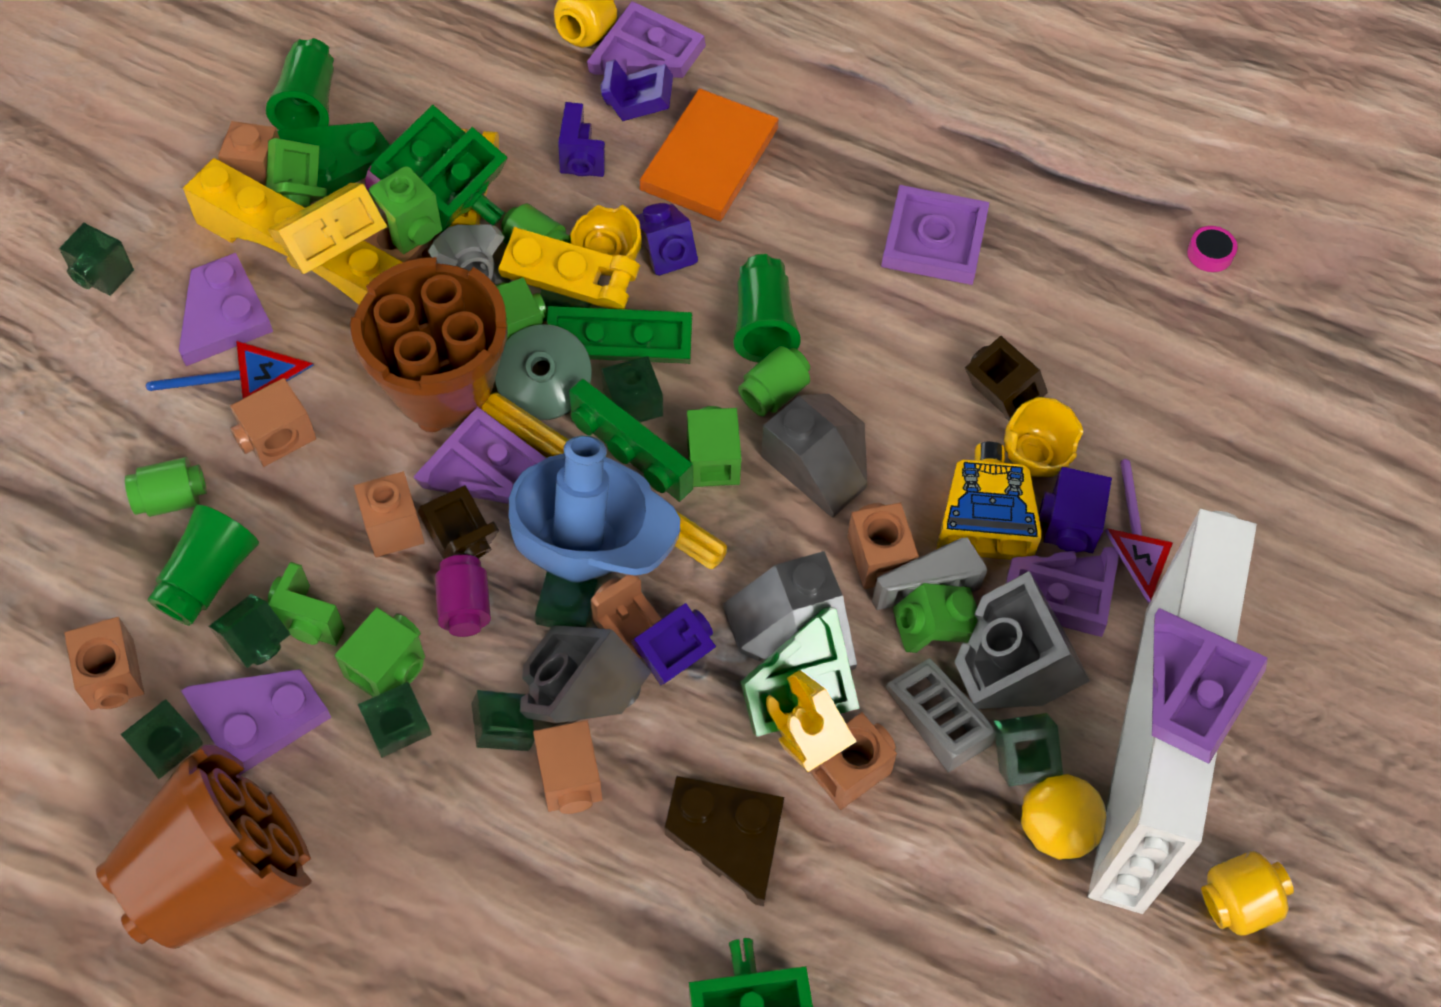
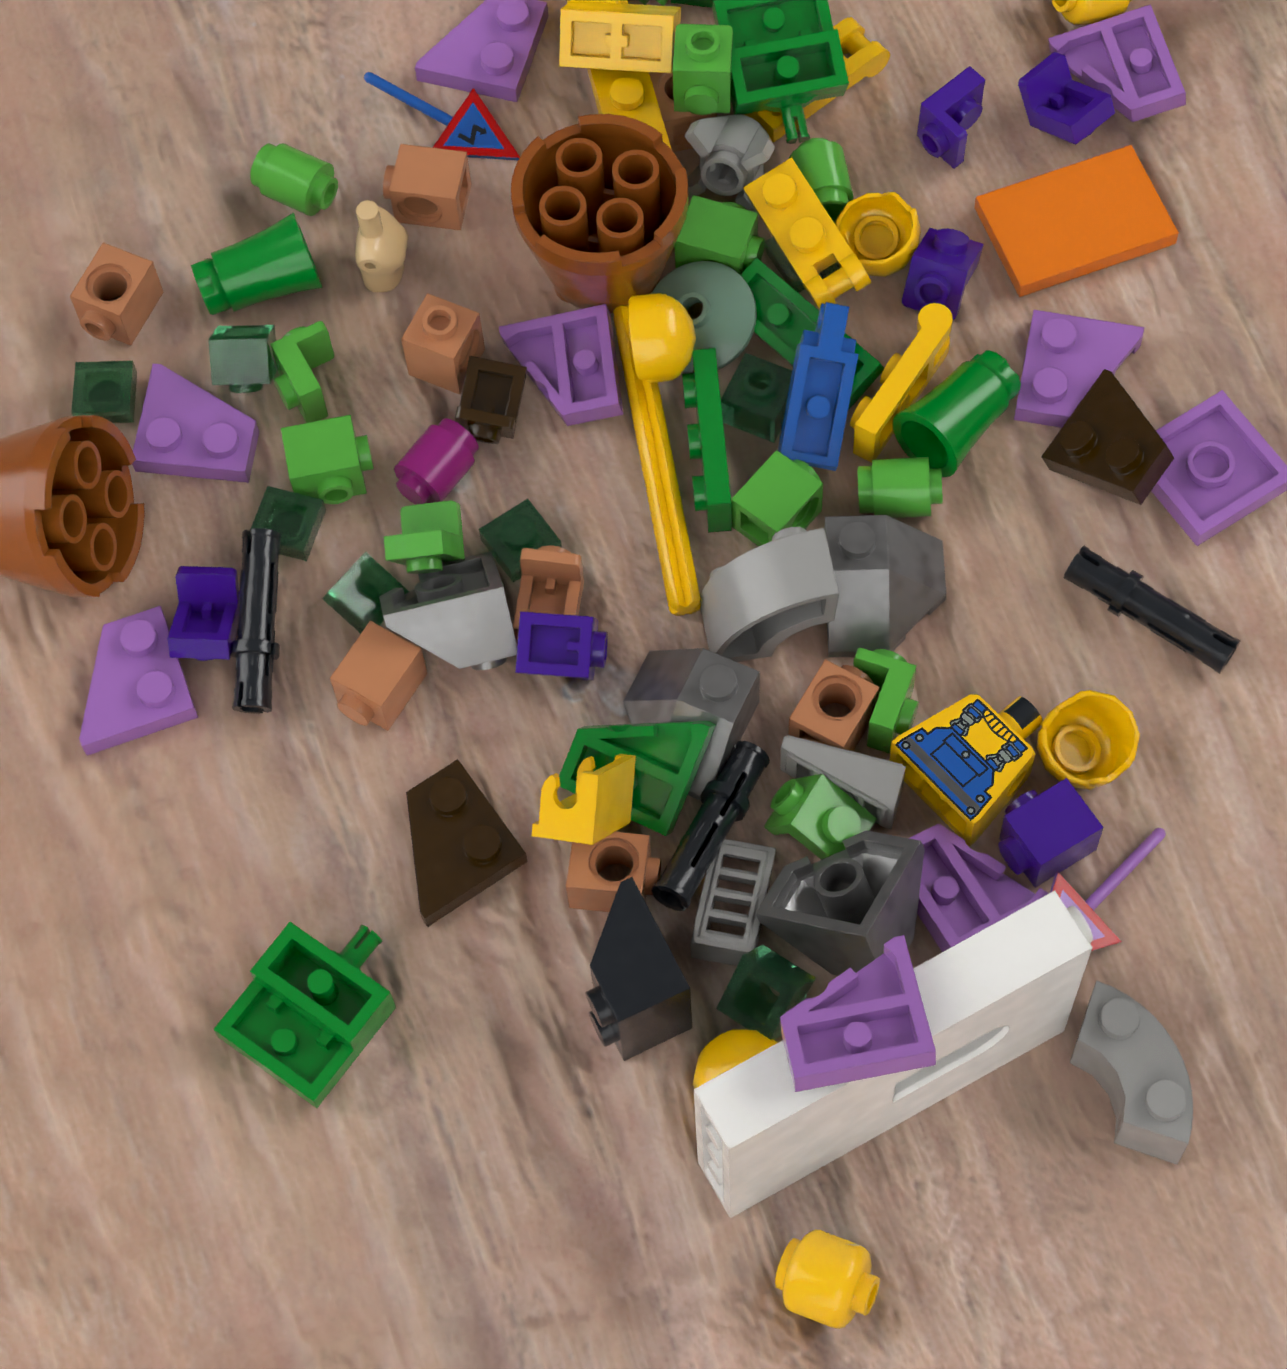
camera: 50 degrees right, 5 degrees up
(279, 486) = (379, 247): none -> tan piece
(391, 921) = (134, 684): none -> medium lavender wing
(400, 828) = (205, 613): none -> dark purple bracket
(444, 800) = (257, 610): none -> black pin
(508, 646) = (428, 537): none -> bright green bracket
(544, 394) = (660, 336): none -> yellow hair
(590, 515) = (593, 476): medium blue piece -> none
(674, 354) = (820, 391): none -> blue hinge
(711, 314) = (902, 381): none -> yellow plate
(776, 500) = (769, 595): none -> light grey brick
(795, 234) = (1065, 360): none -> medium lavender wing
(873, 259) = (1110, 444): none -> dark brown wing
(875, 657) = (723, 804): none -> black pin
(917, 508) = (894, 708): none -> bright green bracket
(948, 806) = (636, 982): none -> black slope
(969, 338) = (1140, 602): none -> black pin
(1005, 376) = (1118, 656): dark brown brick -> none
(1292, 610) = (1139, 1072): none -> light grey brick

